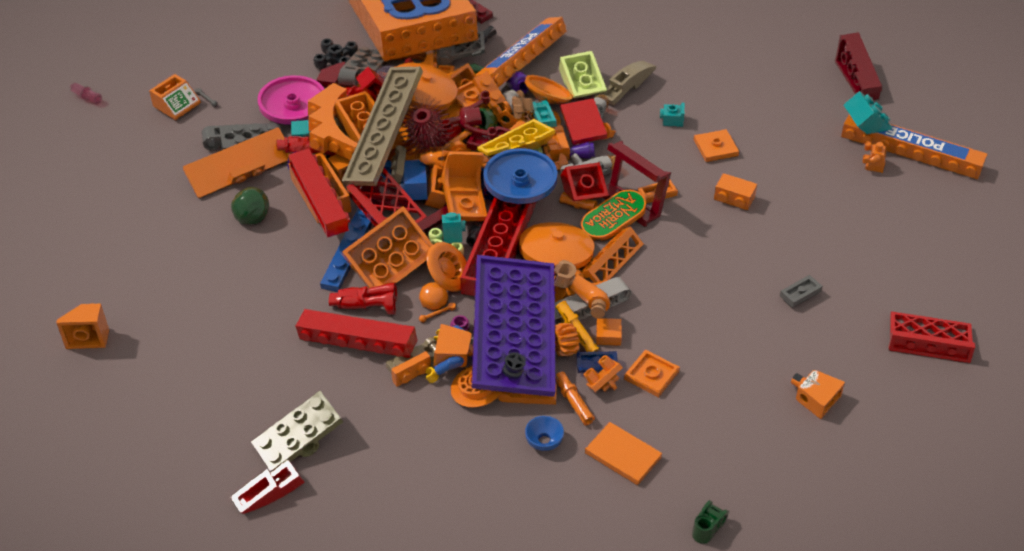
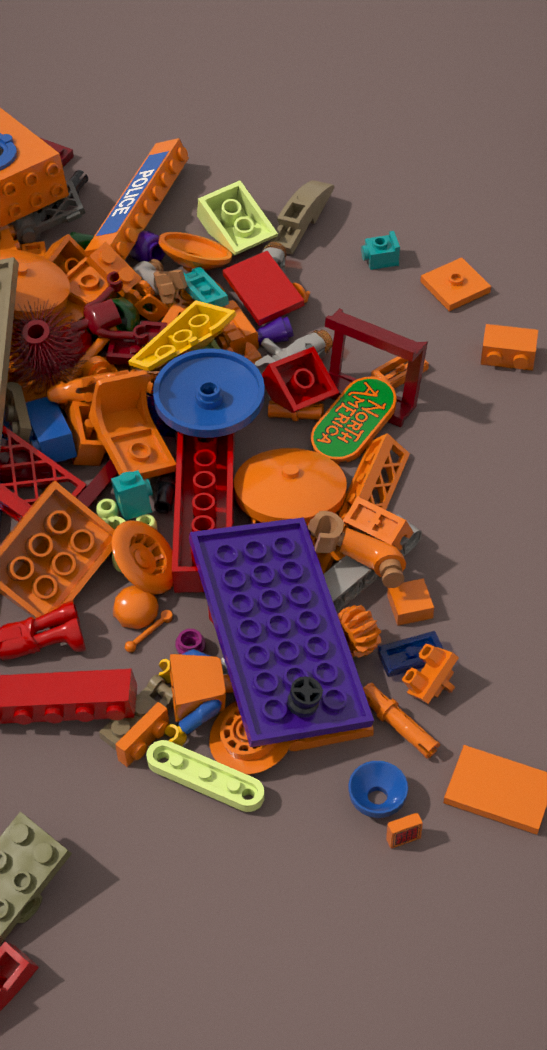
camera: 15 degrees left, 5 degrees up
(441, 401) = (205, 775): none -> yellowish green plate
(552, 460) = (404, 830): none -> orange tile
(569, 317) = (357, 597): light orange pin -> none
(601, 277) = (377, 522): none -> orange hinge
(651, 373) = (493, 651): orange tile -> none

